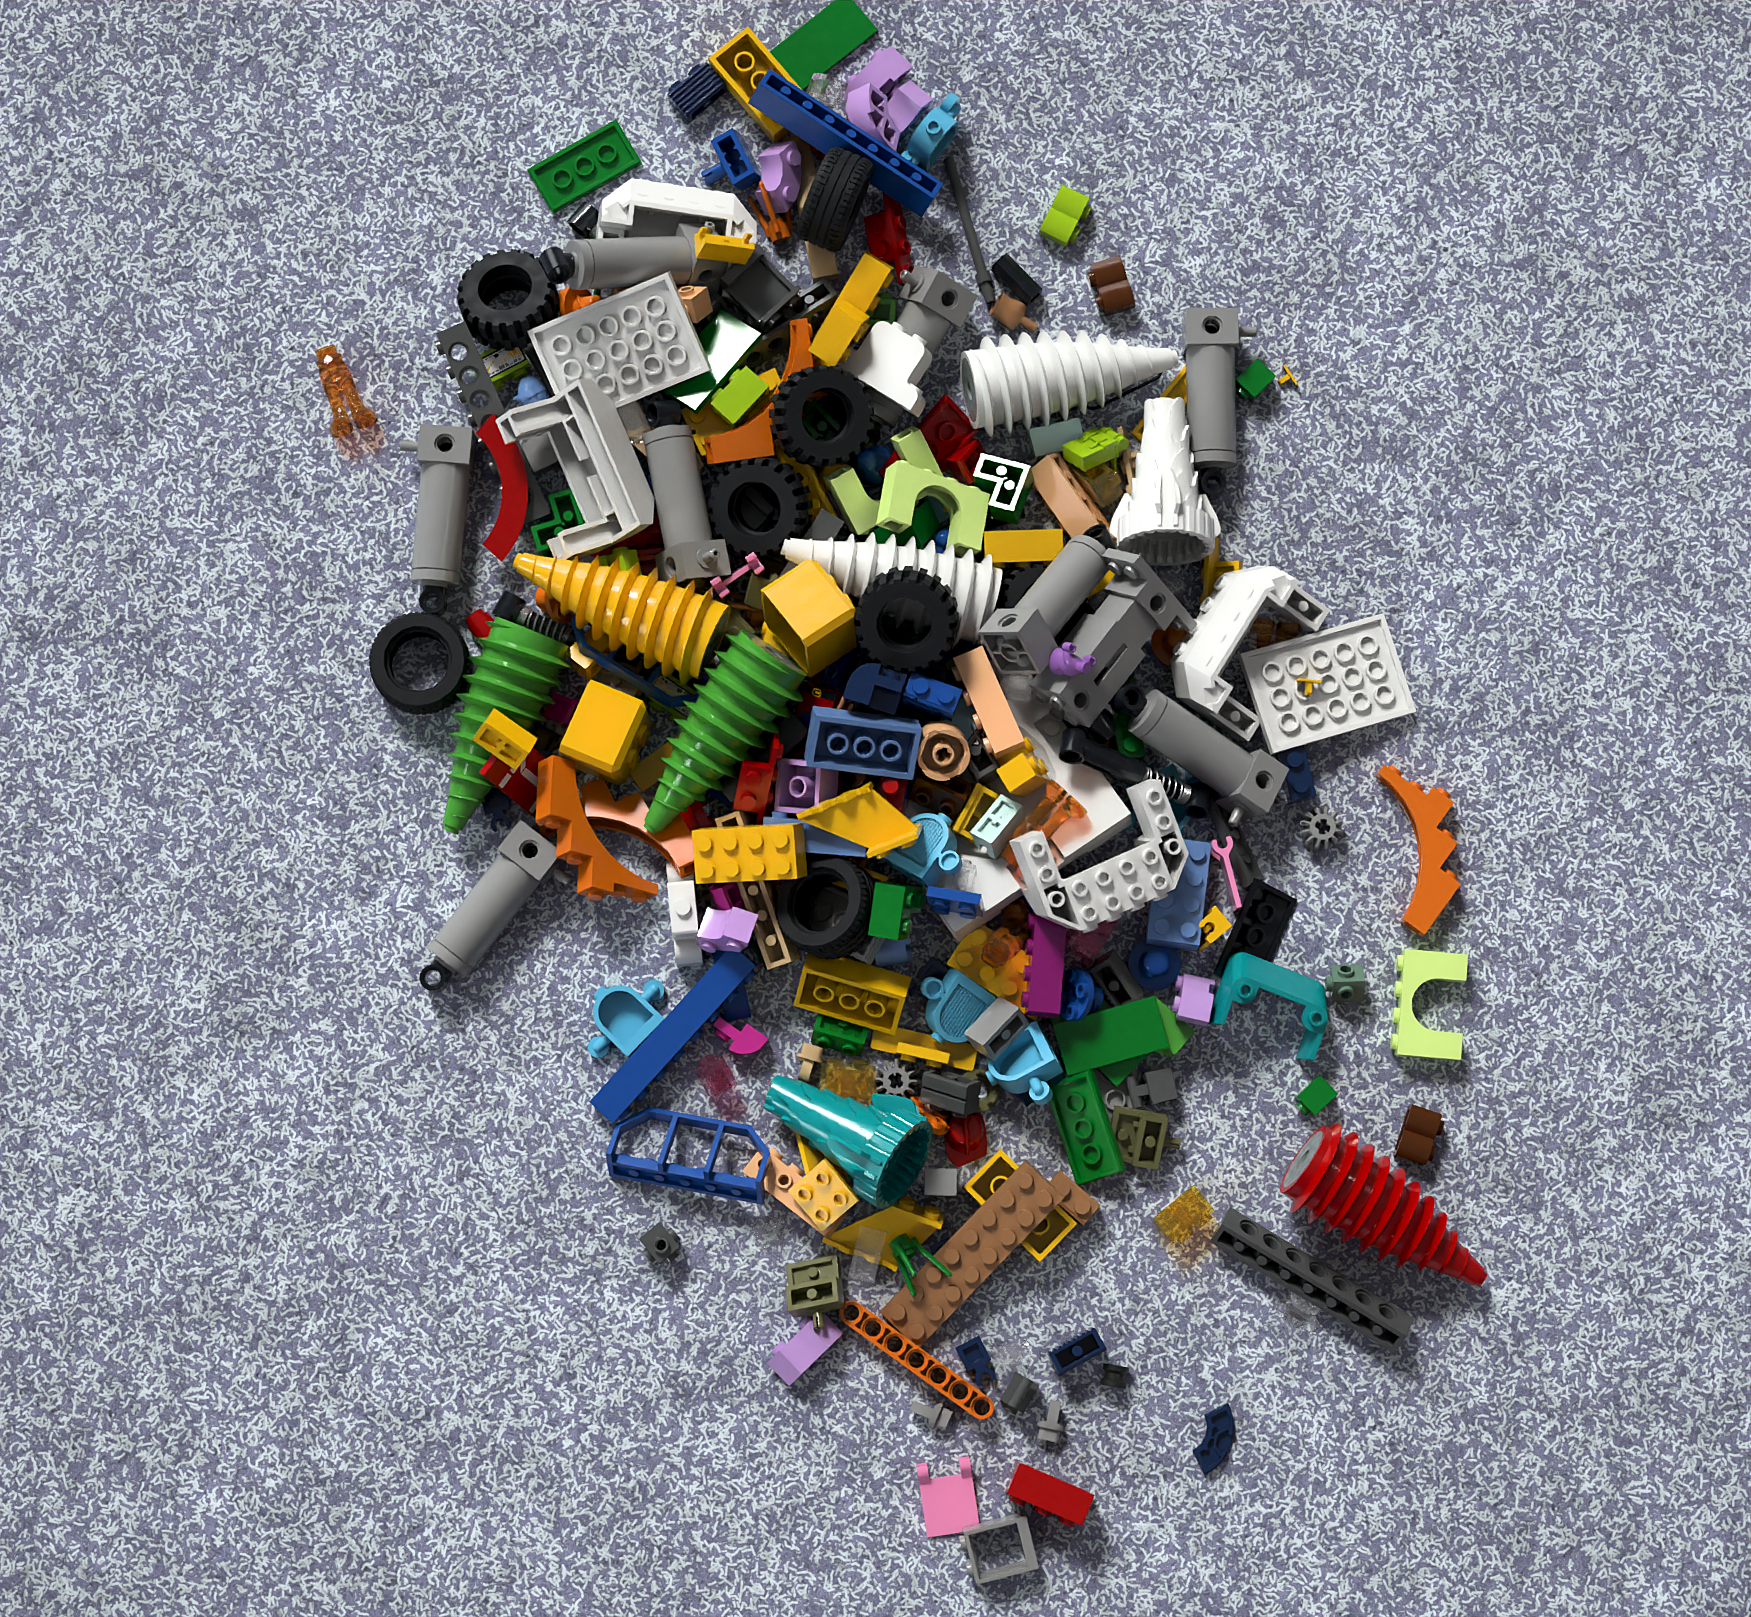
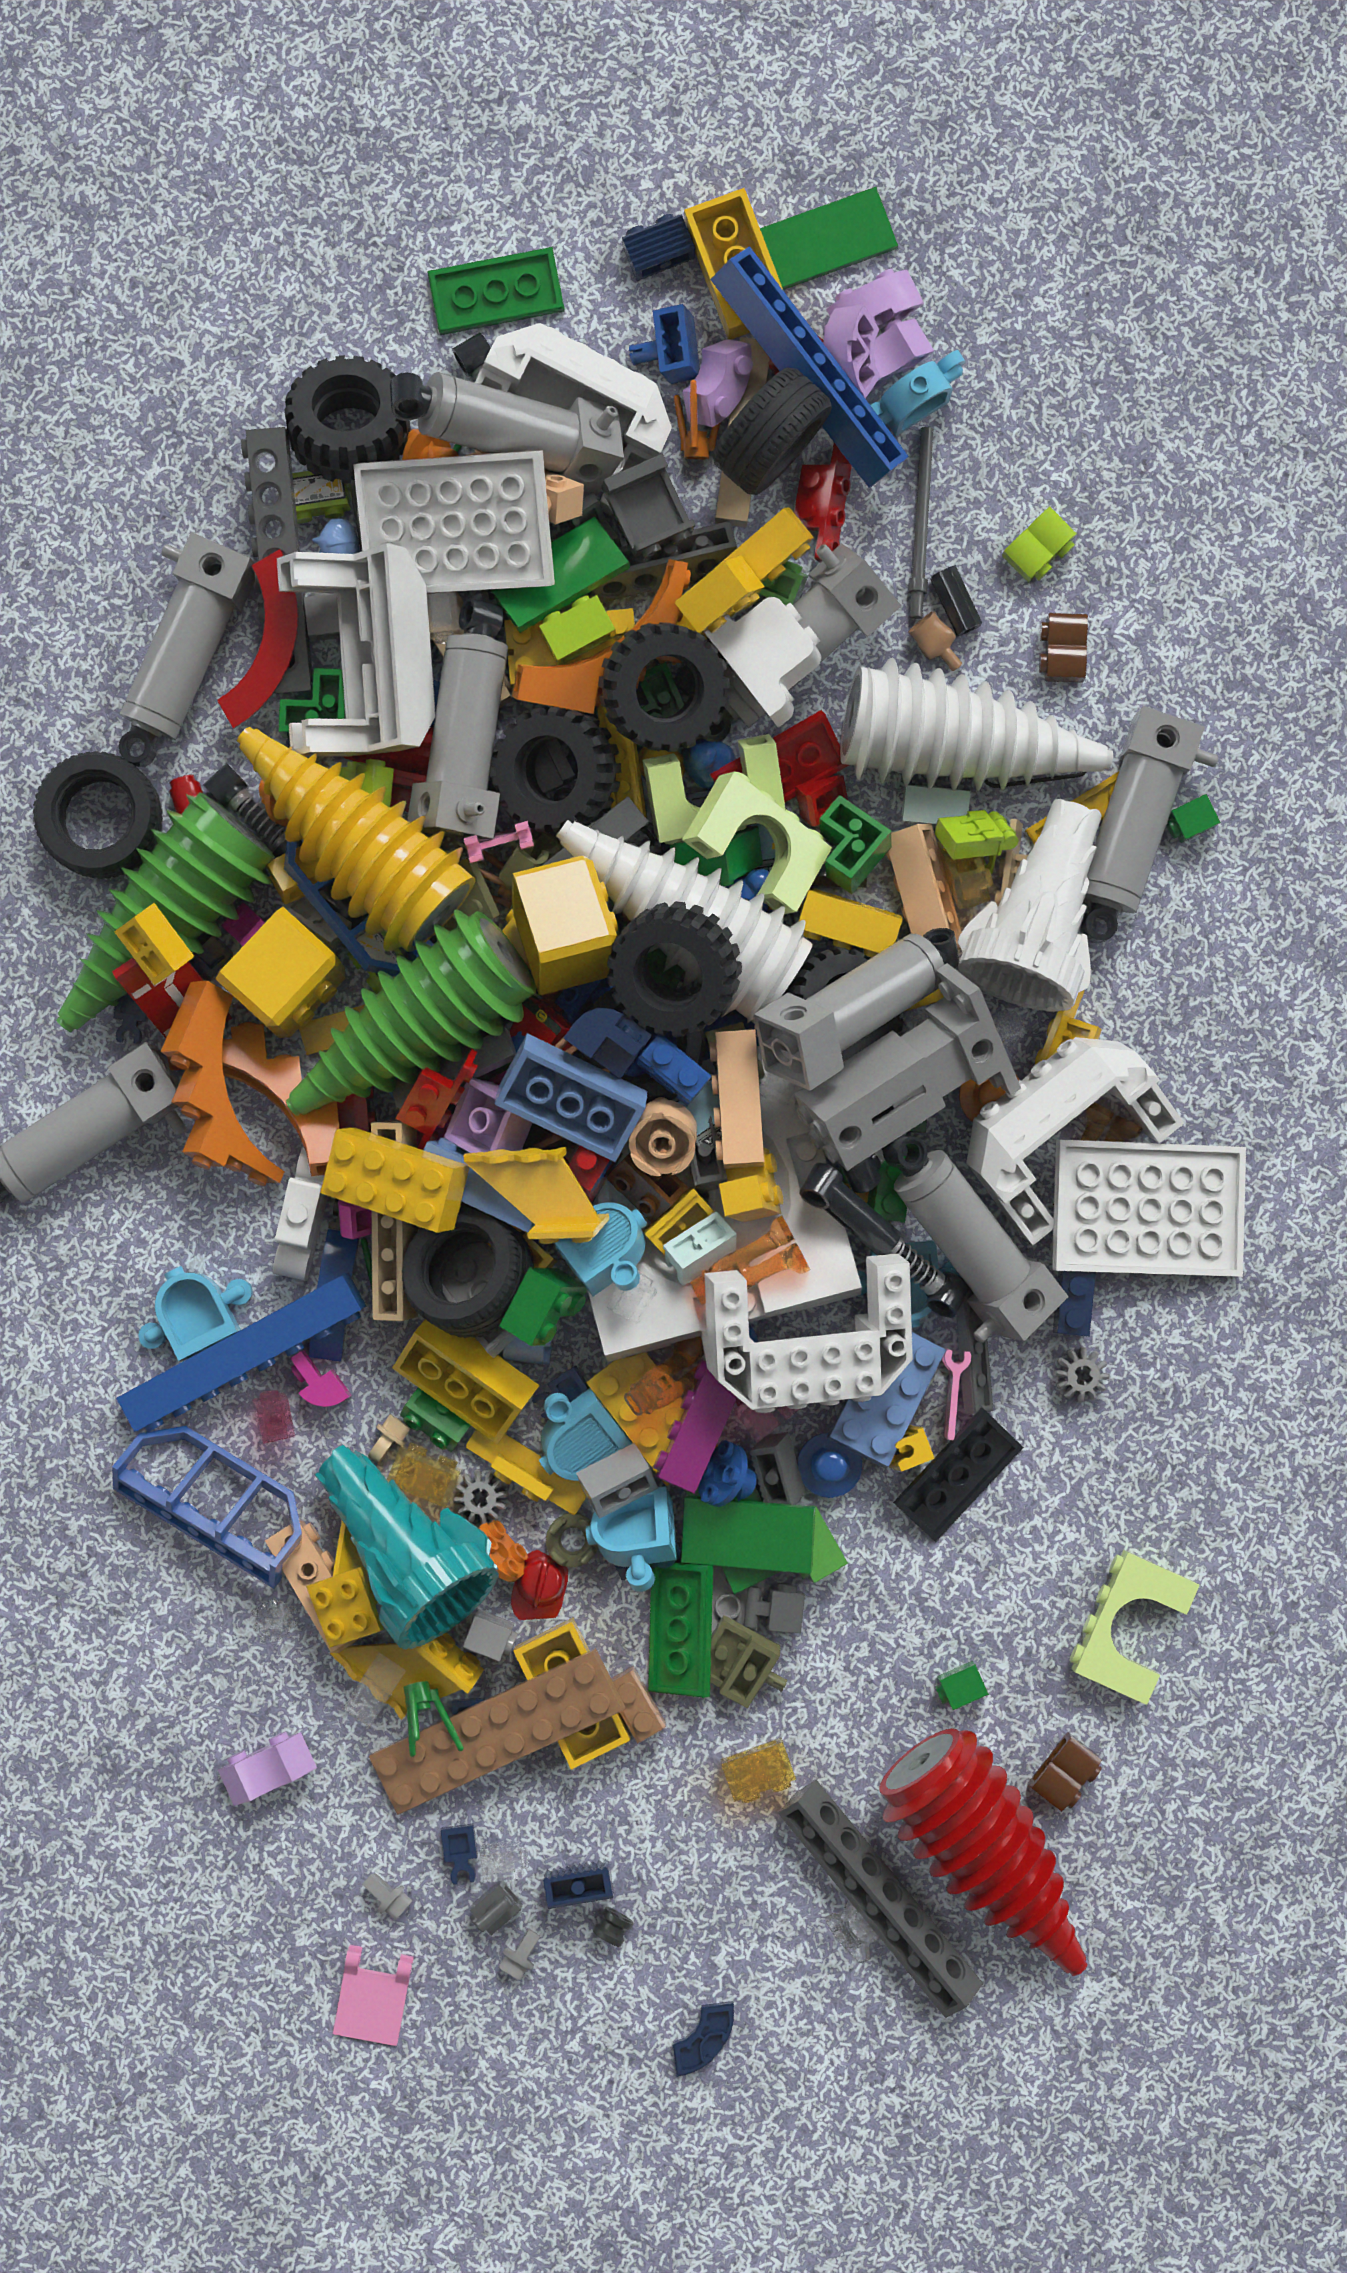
camera: 20 degrees right, 5 degrees up
(335, 378) = (117, 443): clear orange piece -> none
(651, 1240) = (150, 1582): dark grey brick -> none
(723, 247) = (617, 443): yellow hinge -> none
(726, 929) = (339, 1257): lavender brick -> none
(814, 1288) = (301, 1705): olive plate -> none
(827, 89) = (811, 297): clear brick -> none
(929, 1363) = (394, 1843): orange beam -> none
(950, 1092) = (537, 1535): dark grey brick -> none
(956, 901) = (603, 1318): blue plate -> none
(1030, 1562) = (406, 2105): light grey window -> none
(1049, 1495) = (487, 2040): red brick -> none
(1064, 662) = (844, 1086): medium lavender piece -> none
(1193, 999) = (860, 1524): lavender brick -> none
(1248, 973) = (935, 1520): teal windscreen -> none
(1287, 377) = (1234, 827): yellow piece -> none
(1308, 685) = (1126, 1205): yellow piece -> none
(1346, 983) = (1045, 1567): sand green brick -> none
(1425, 812) = (1210, 1400): orange arch -> none

